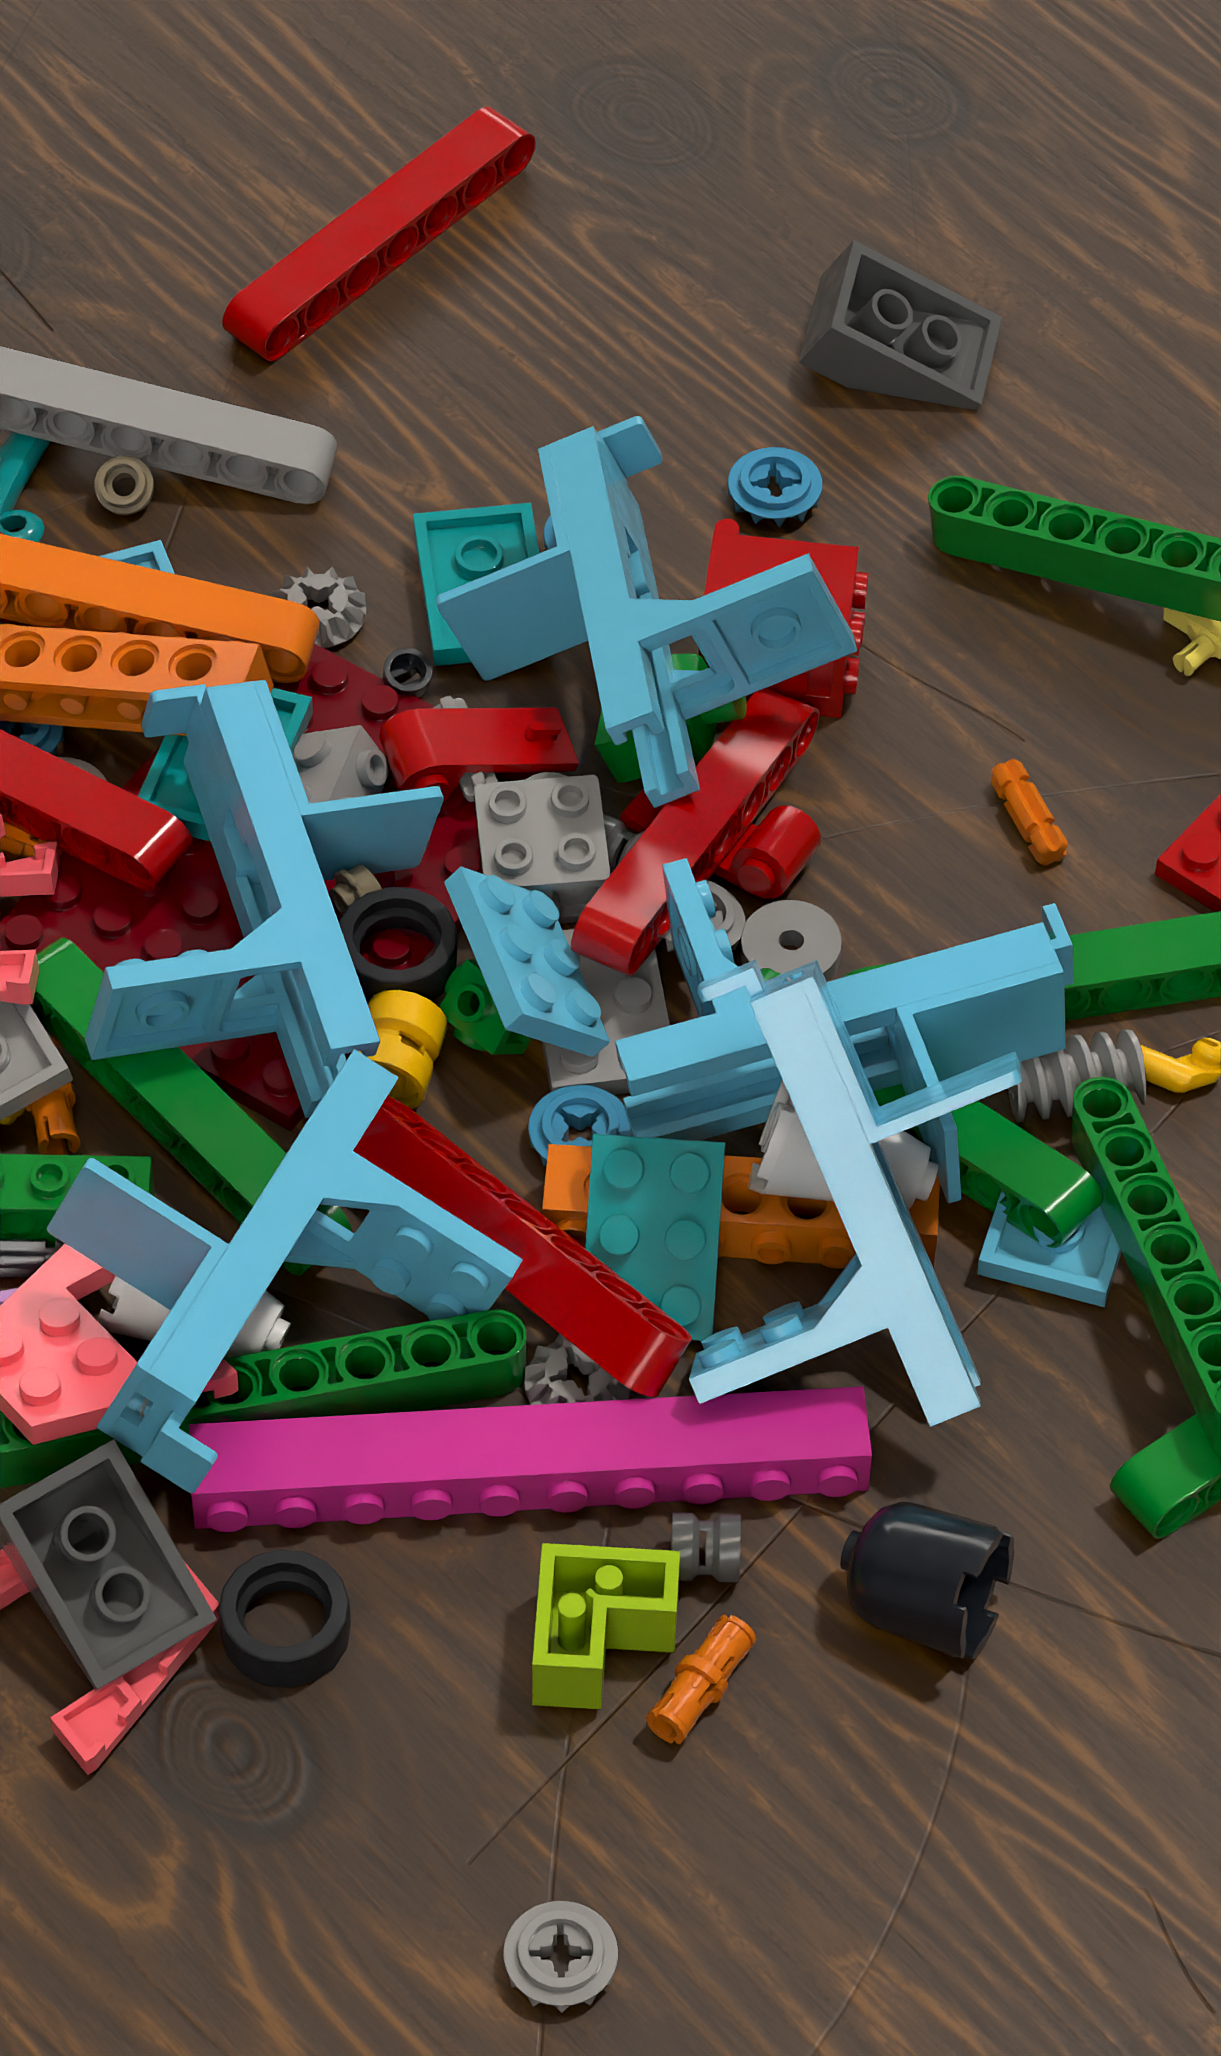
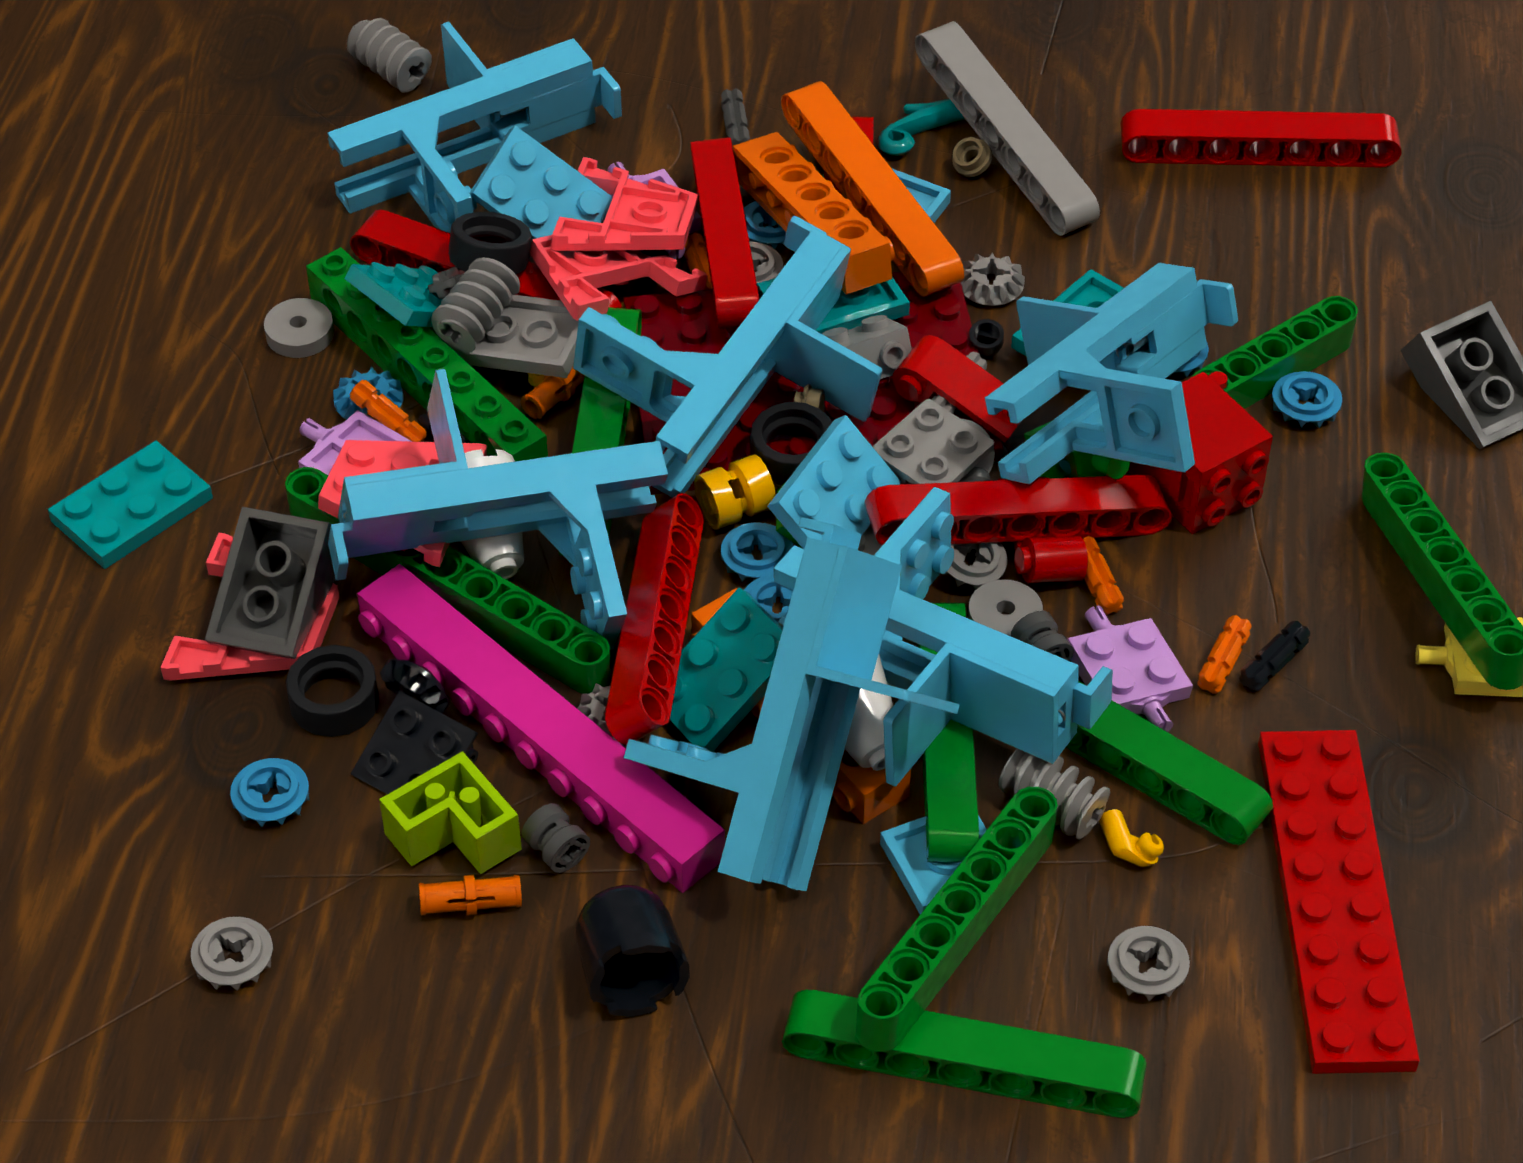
camera: 50 degrees right, 5 degrees down
(370, 1747) = (258, 779): none -> dark azure gear
(377, 1532) = (415, 682): none -> black gear
(457, 1599) = (411, 743): none -> black hinge
(483, 1074) = (740, 542): none -> dark azure gear
(700, 466) = (1289, 347): none -> green beam
(838, 839) = (1100, 579): none -> orange axle
(887, 944) = (1042, 632): none -> dark grey wheel
(960, 894) = (1141, 661): none -> lavender plate
(1072, 774) = (1274, 656): none -> black axle

